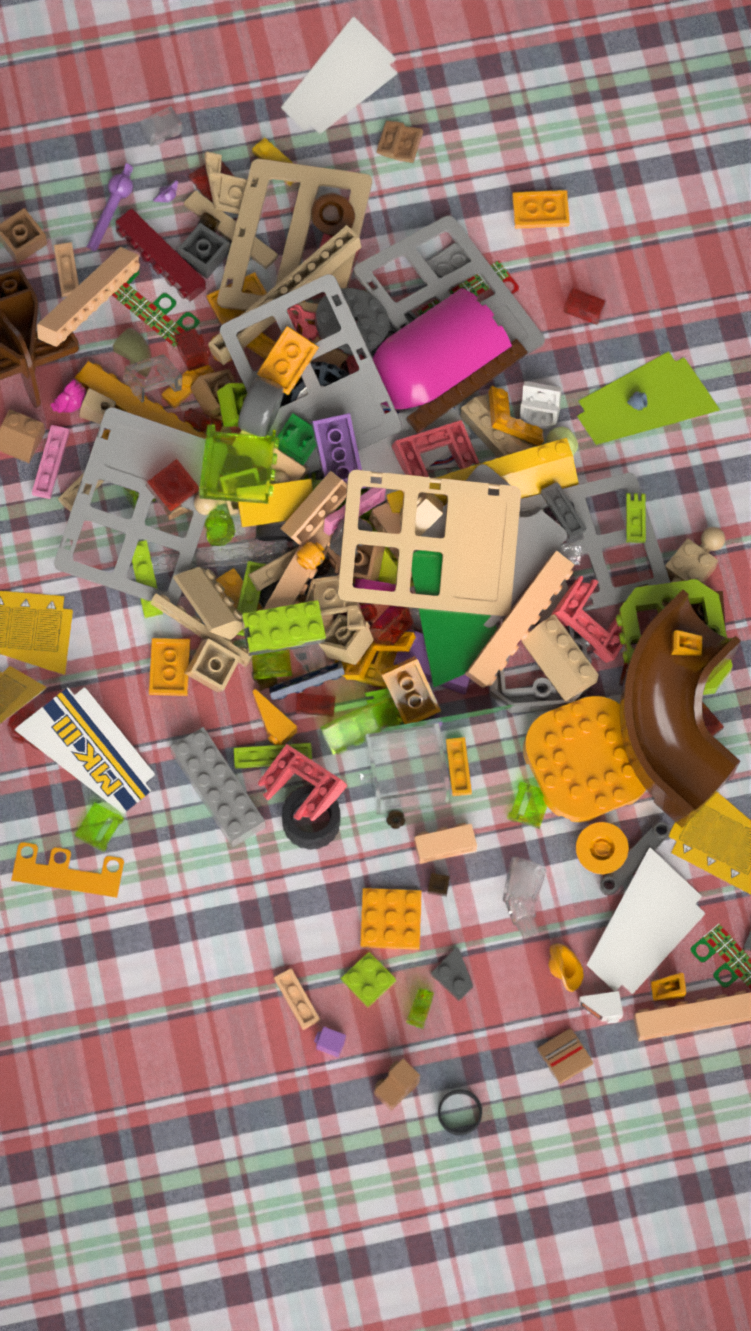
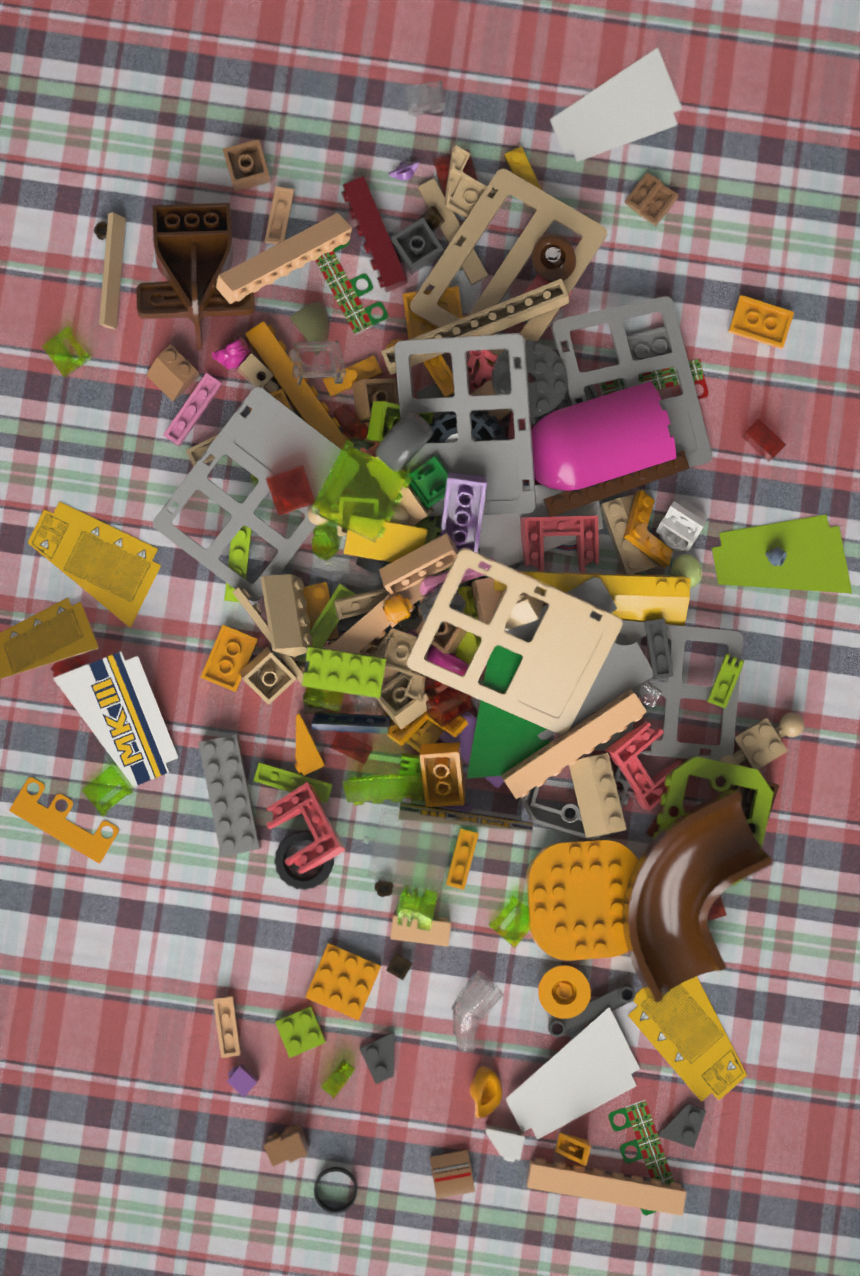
camera: 15 degrees right, 15 degrees up
(120, 187) = (361, 149): medium lavender piece -> none
(192, 349) = (367, 345): clear red brick -> none
(288, 359) = (448, 403): light orange plate -> none
(434, 815) = (417, 908): none -> clear neon green wheel
(686, 644) = (720, 841): light orange slope -> none

